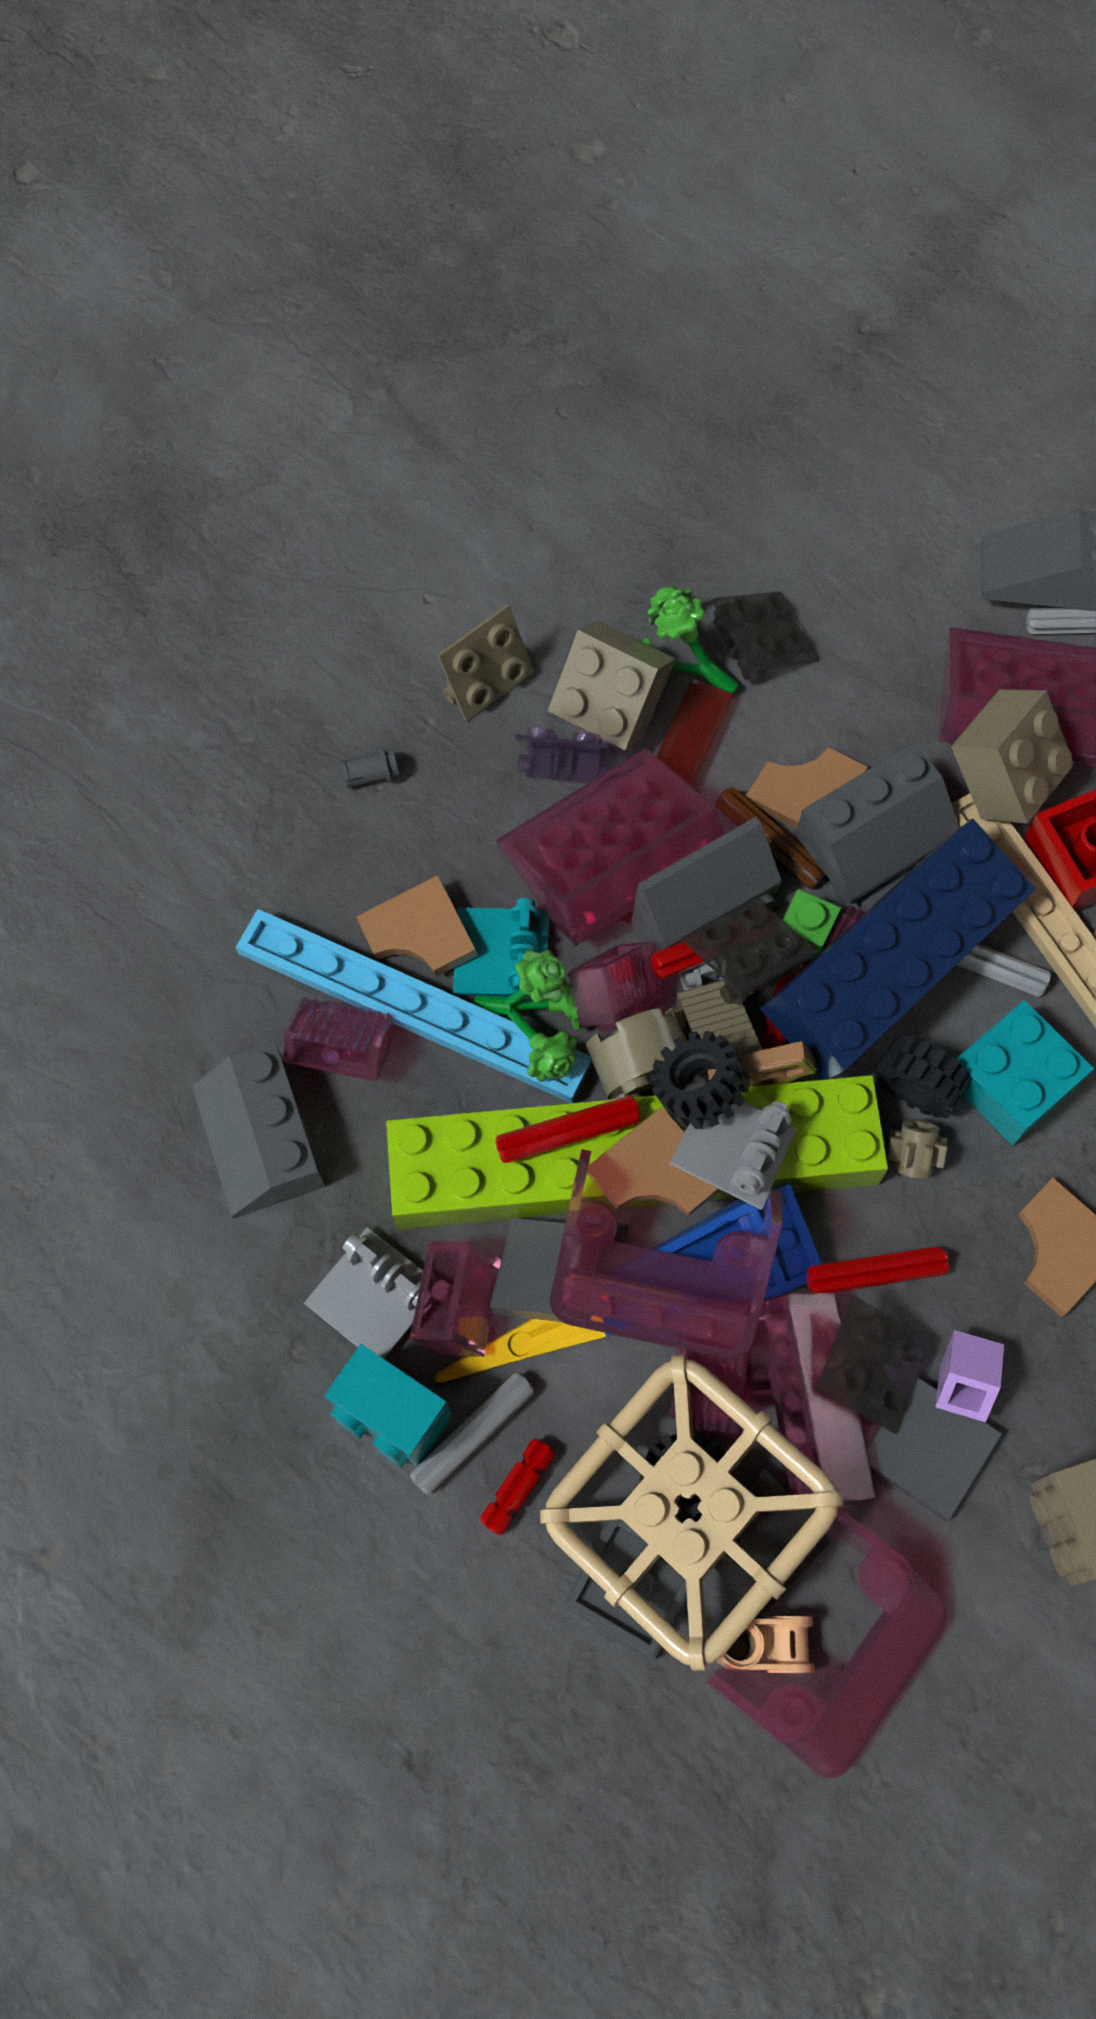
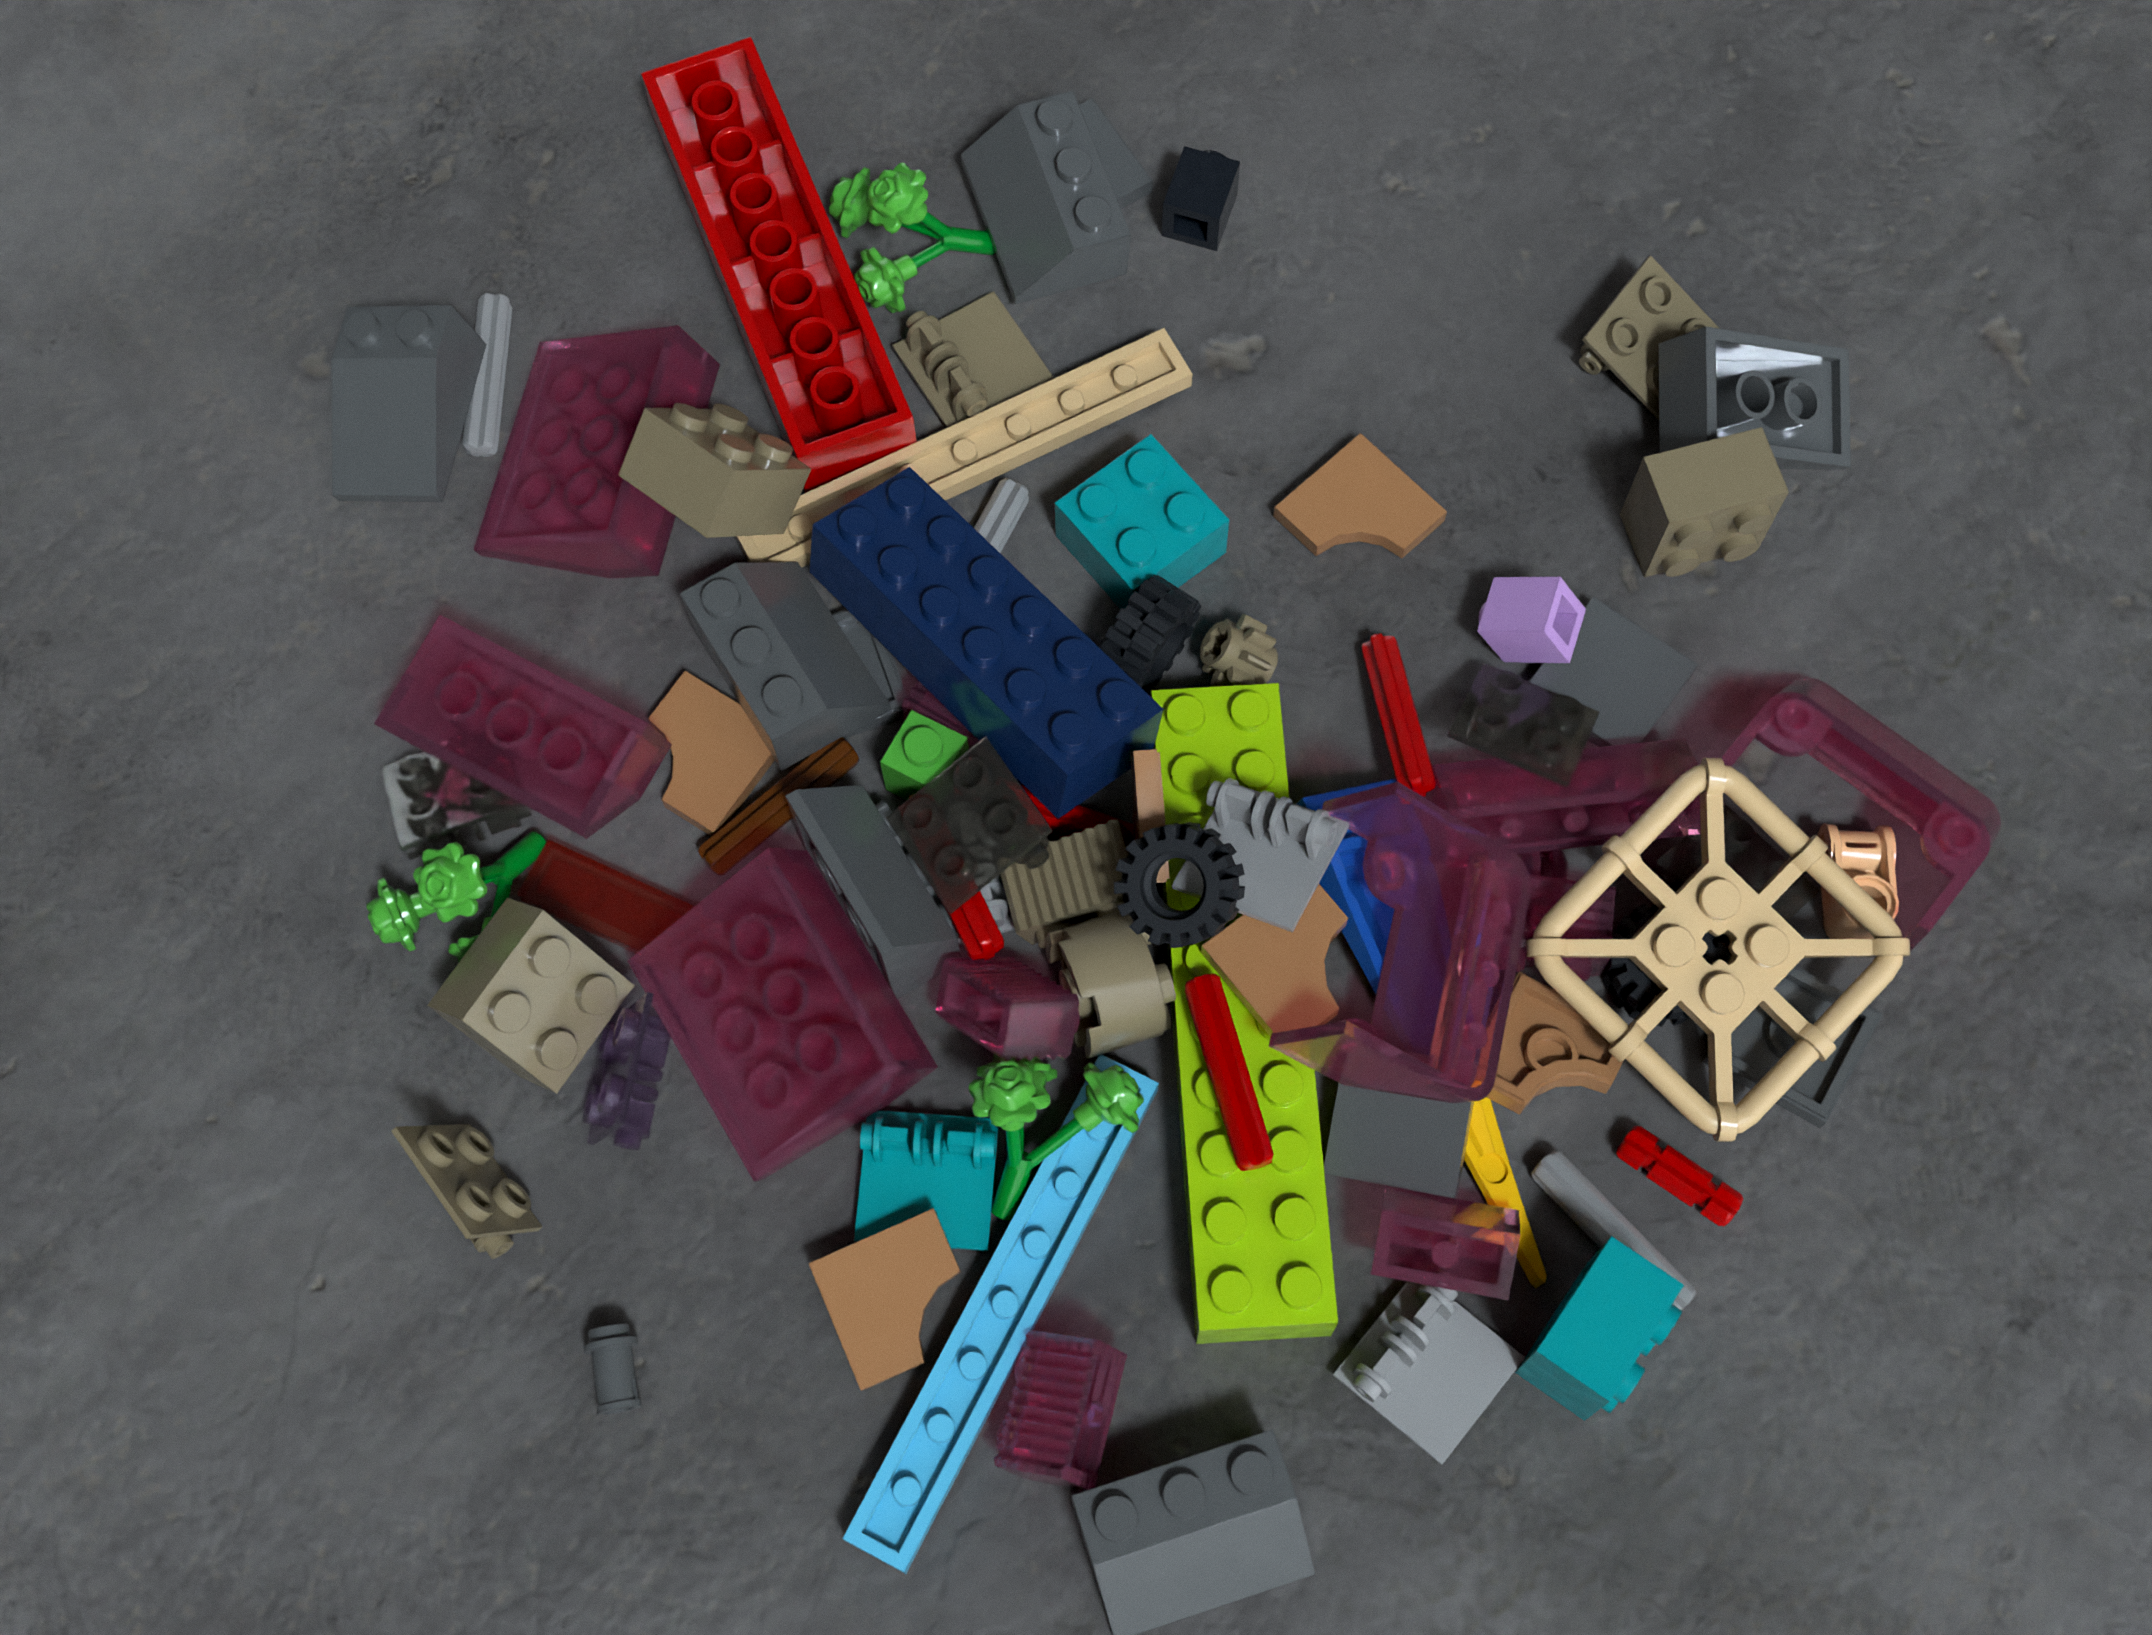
camera: 90 degrees left, 0 degrees up
(609, 1375) = (1548, 1048): none -> medium nougat tile
(804, 662) = (522, 730): none -> clear pink slope

